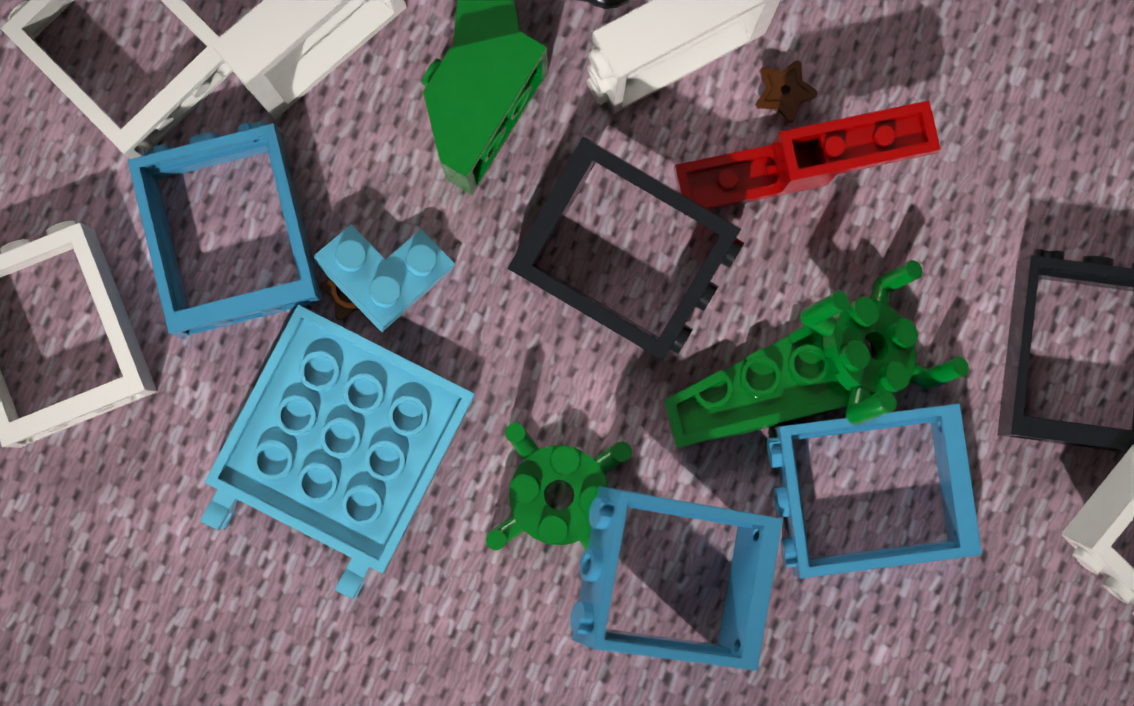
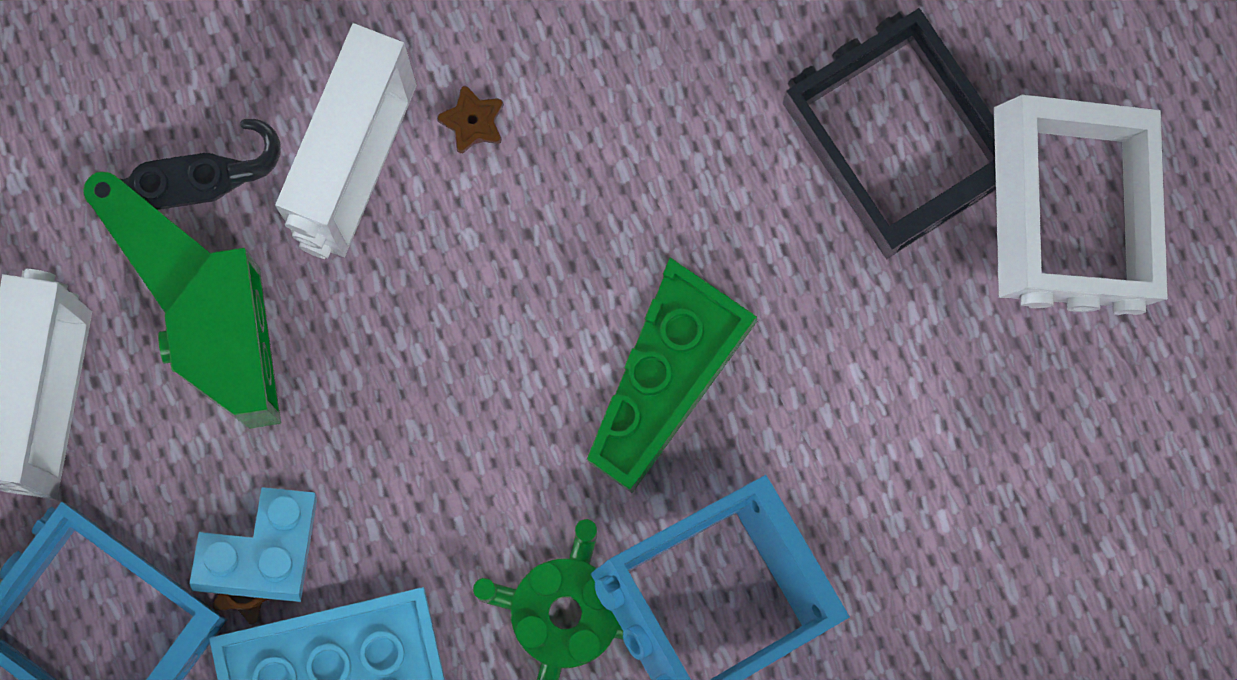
camera: 40 degrees left, 5 degrees down
(554, 211) = (362, 373): black window -> none
(810, 156) = (536, 163): red bracket -> none
(894, 341) = (731, 249): green plate -> none
(954, 487) = (880, 326): dark azure window -> none

